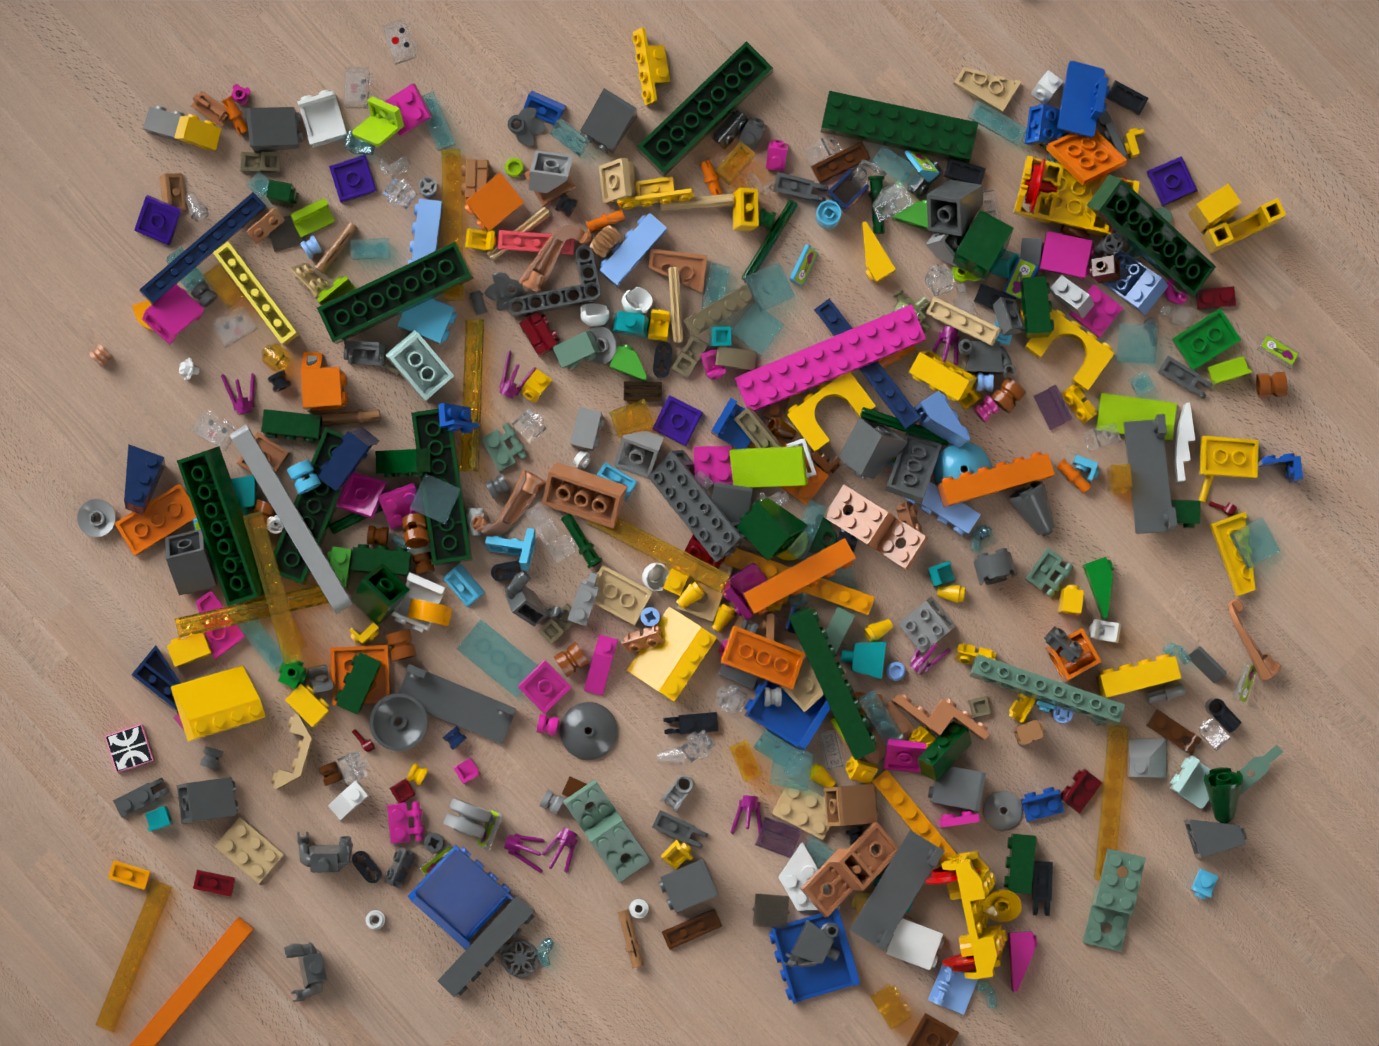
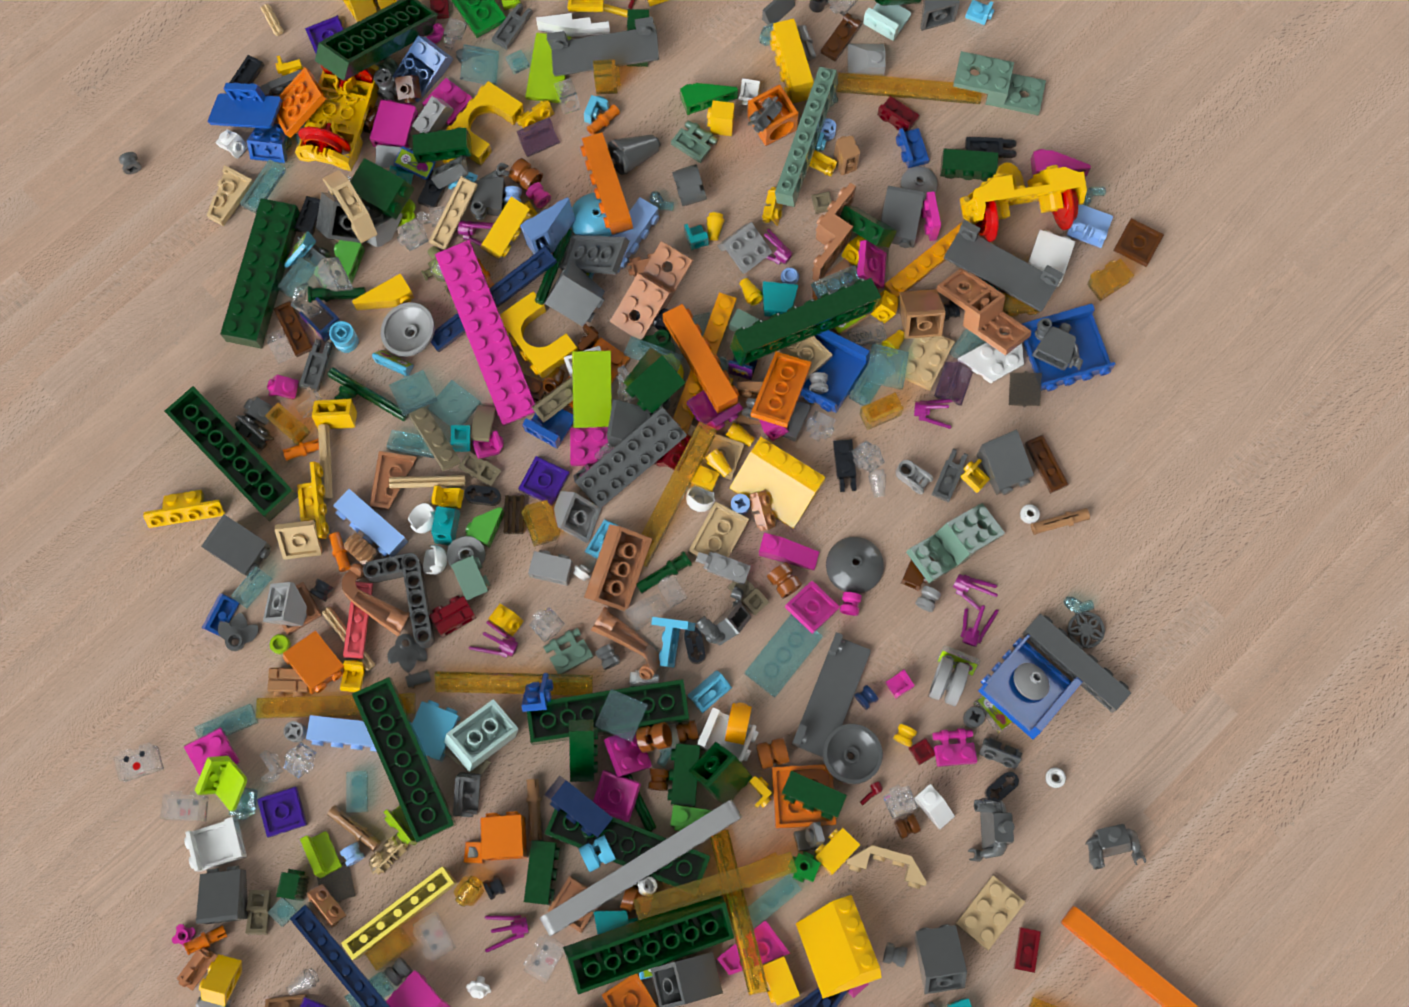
camera: 90 degrees left, 10 degrees down
(461, 893) = (1031, 681): none -> light grey dish
(835, 268) = (402, 322): none -> light grey dish
(960, 216) = (352, 205): none -> tan slope
(1192, 120) = (272, 19): none -> tan axle

